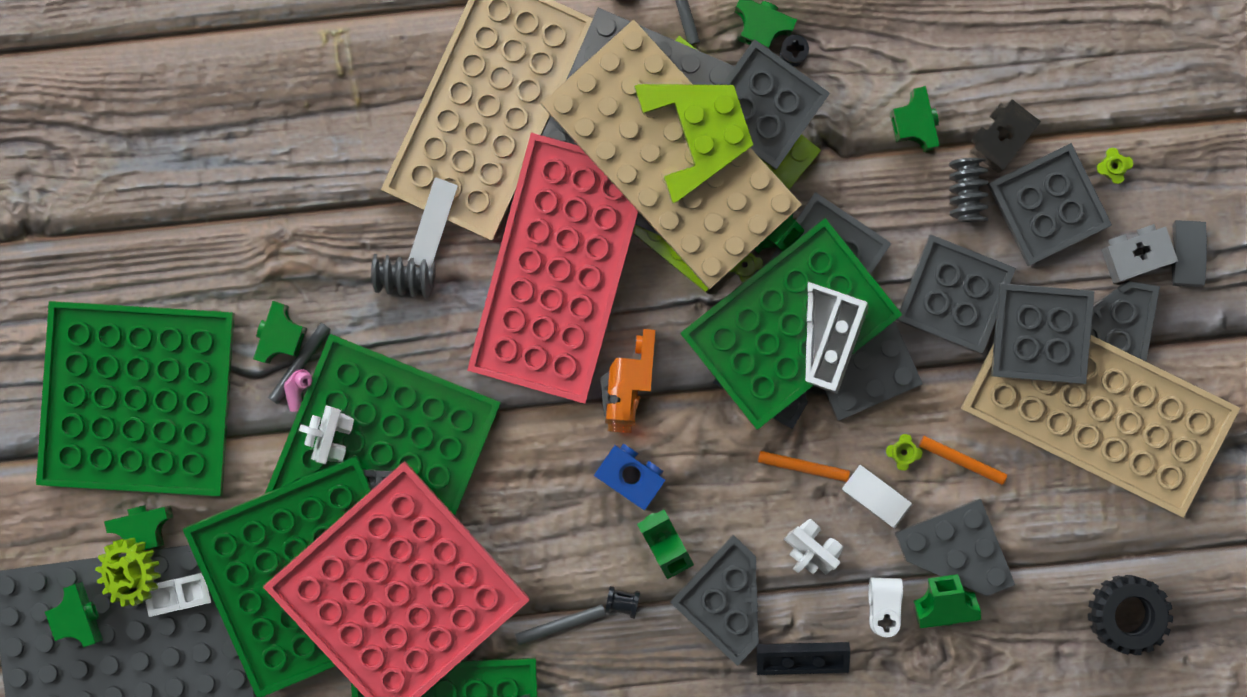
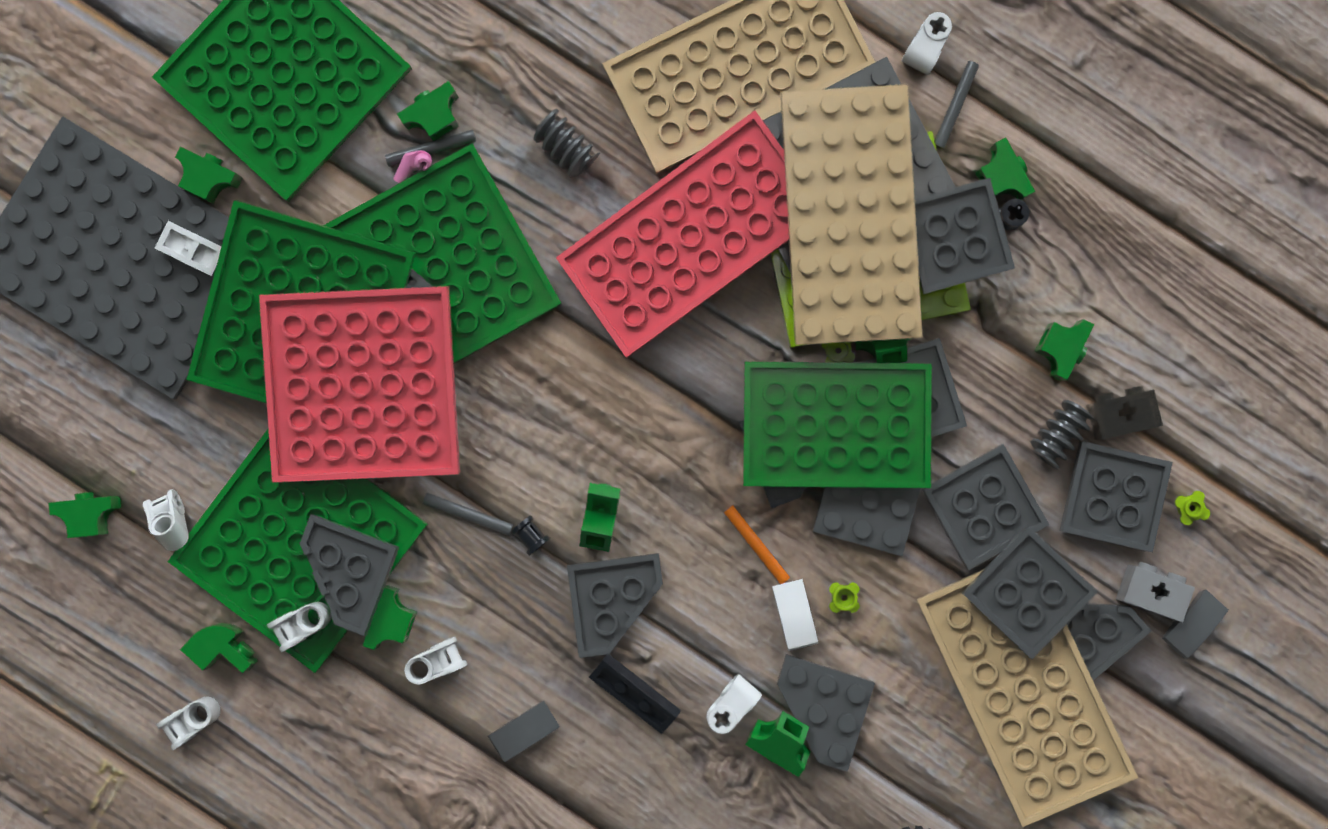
camera: 45 degrees right, 0 degrees up
(75, 617) = (97, 202): green brick -> none
(127, 572) = (166, 200): lime gear -> none
(324, 448) = (395, 227): white hips -> none
(433, 221) = (623, 120): white sticker -> none
(624, 381) = (671, 365): orange plate -> none
(644, 489) = (602, 428): blue brick -> none
(711, 126) = (901, 215): lime wing -> none
(811, 553) = (707, 615): white hips -> none
(831, 335) = (862, 458): white wedge -> none
(963, 460) = (885, 641): orange bar -> none

